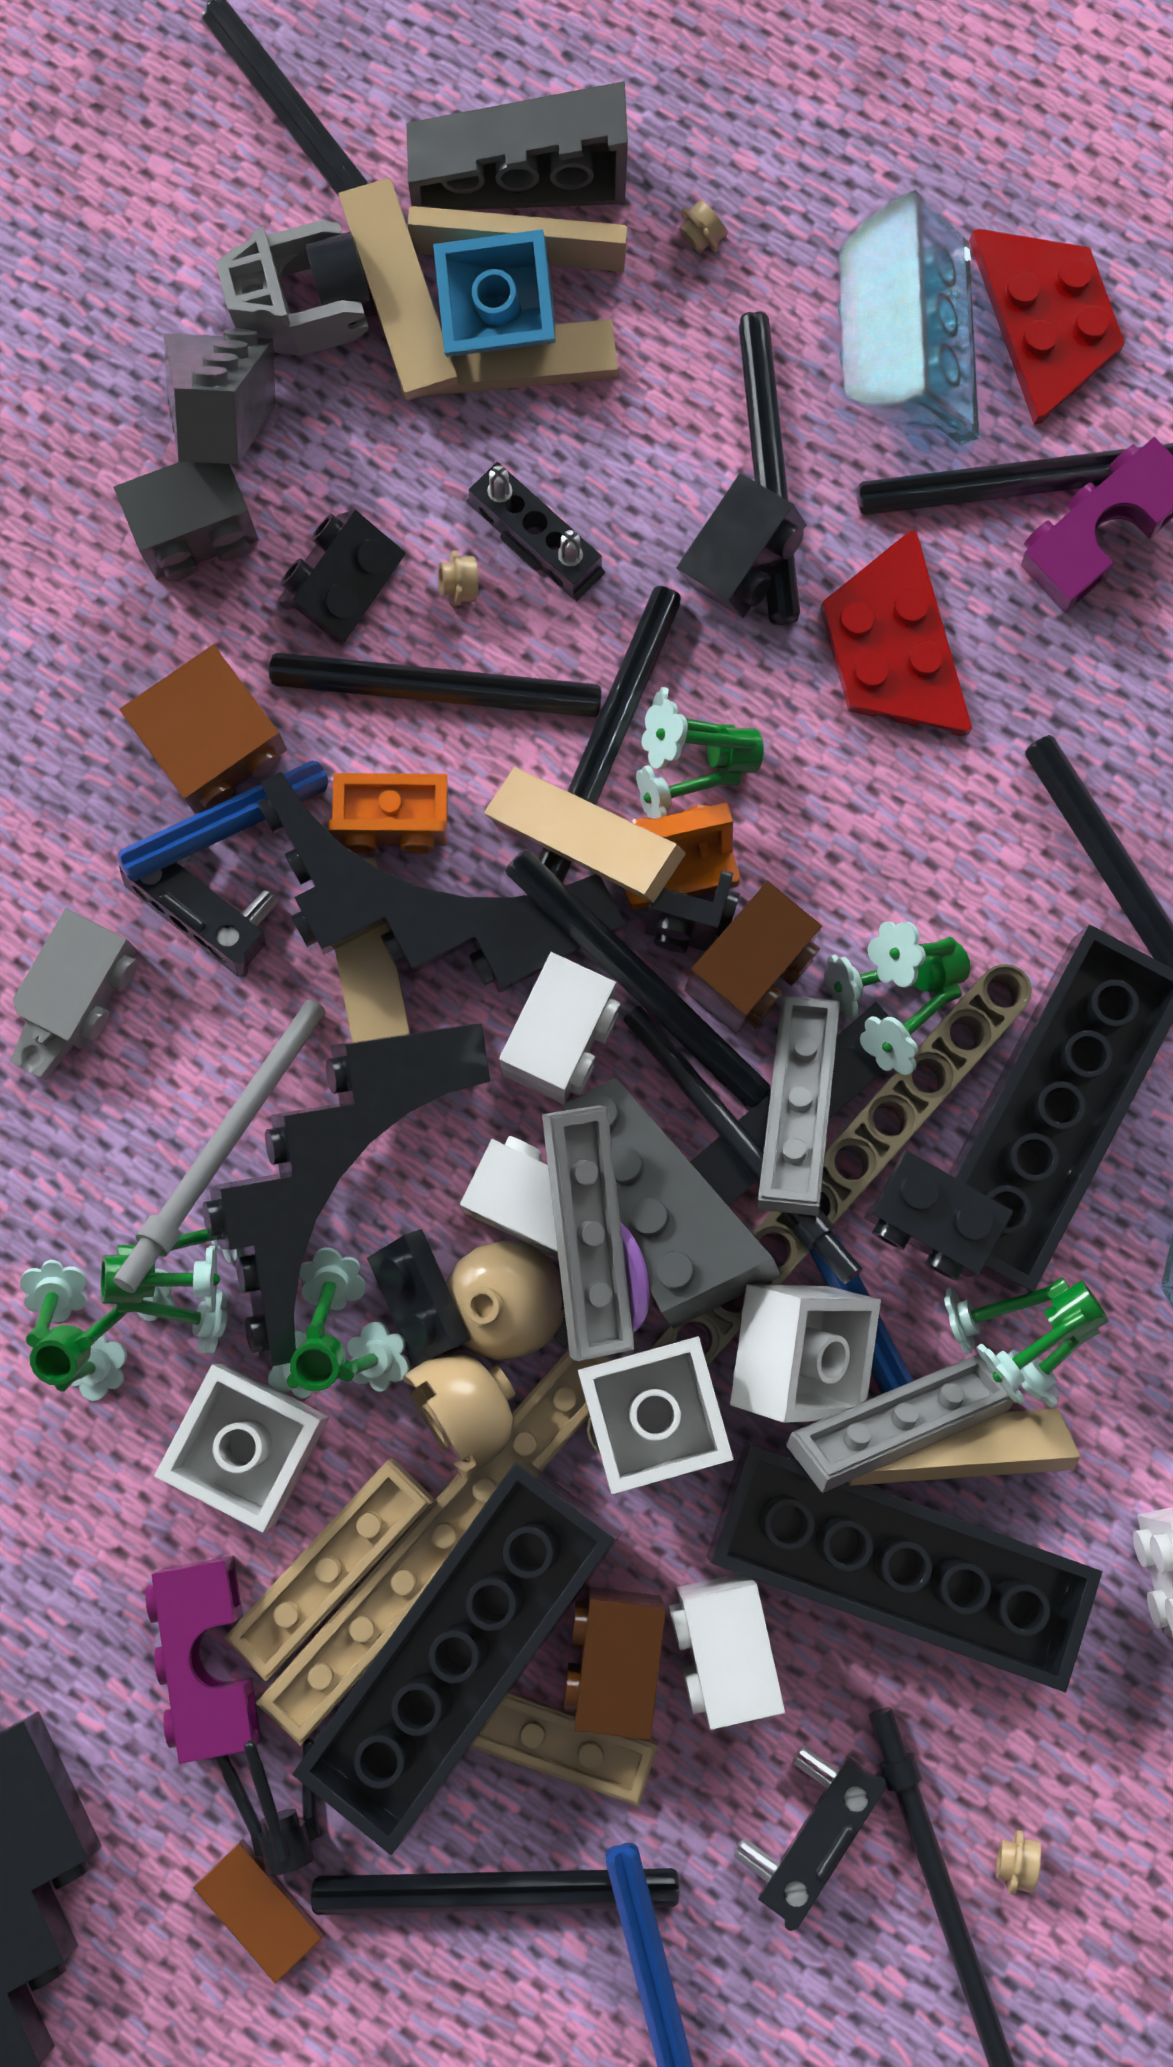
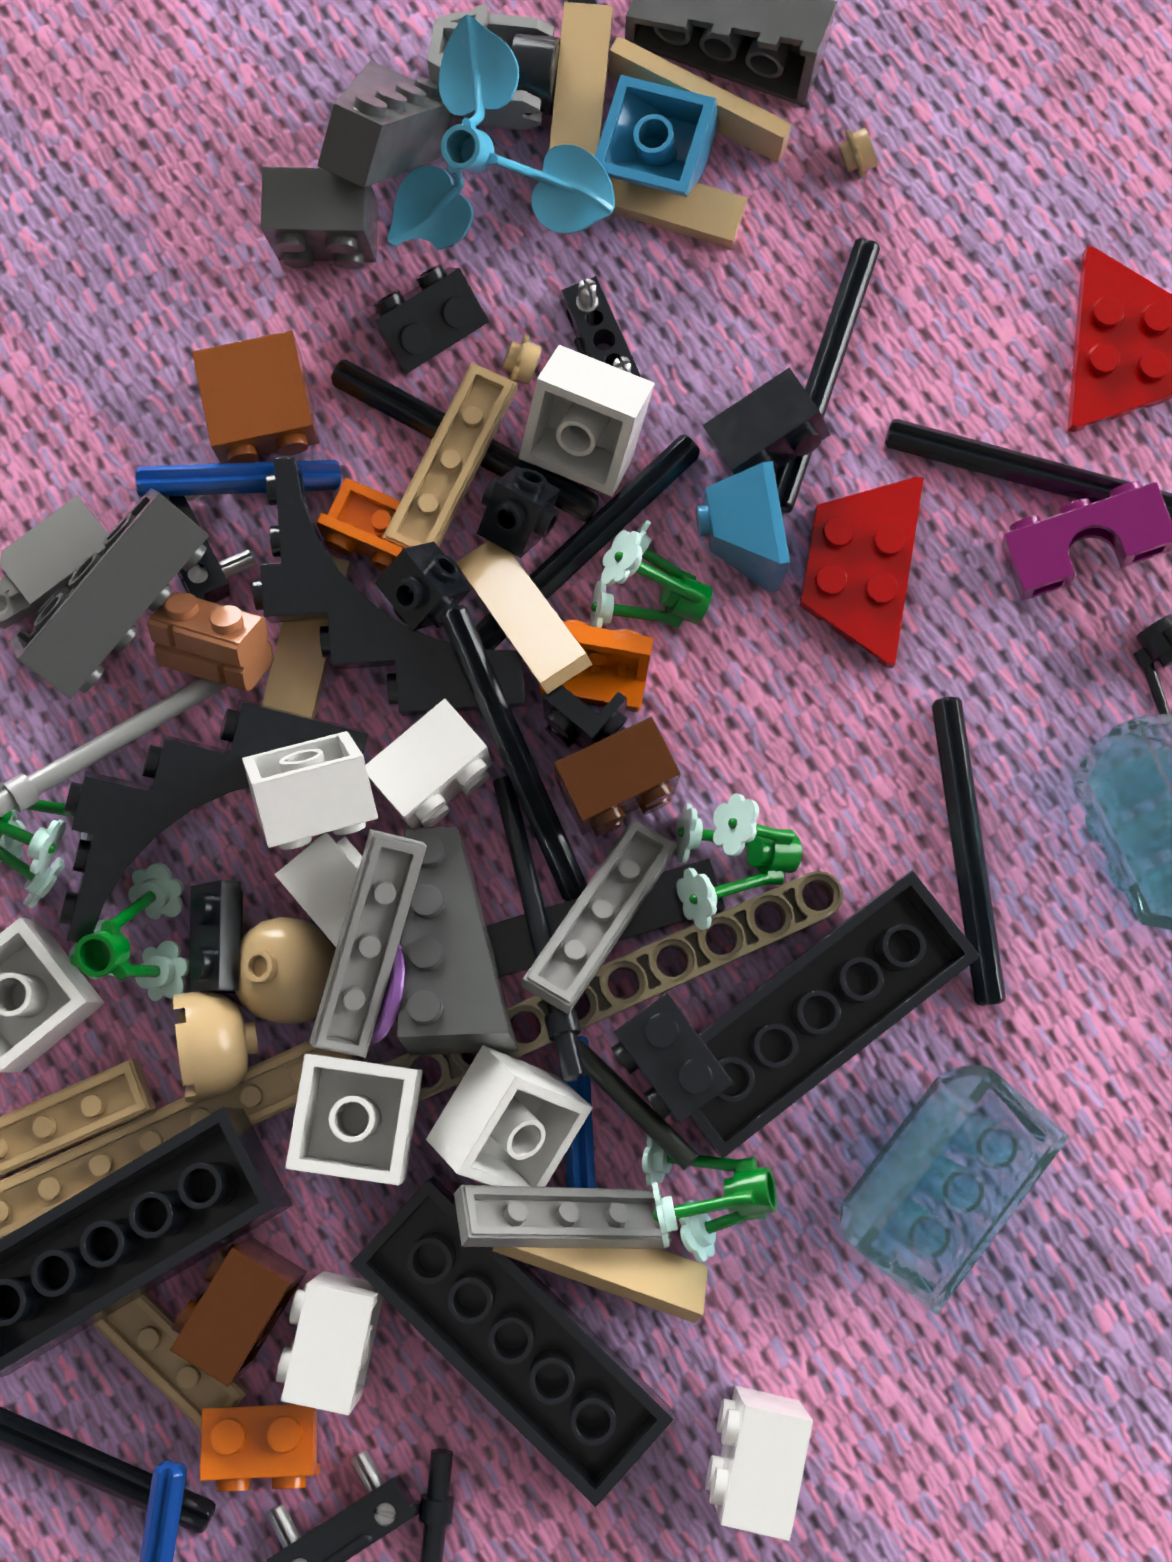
camera: 25 degrees right, 0 degrees up
(153, 992) = (110, 595): none -> dark grey wedge
(274, 998) = (211, 640): none -> nougat brick
(285, 305) = (475, 76): none -> medium azure plant
(436, 711) = (452, 459): none -> tan tile
(458, 1102) = (310, 790): none -> white brick
(471, 849) = (423, 585): none -> black brick
(528, 732) = (518, 510): none -> black brick
(557, 611) = (585, 420): none -> white brick
(696, 1788) = (259, 1444): none -> orange bracket
(768, 650) = (747, 525): none -> dark azure slope
(910, 320) = (996, 299): clear light blue windscreen -> none
(927, 1282) = (636, 1108): none -> pearl dark grey bar

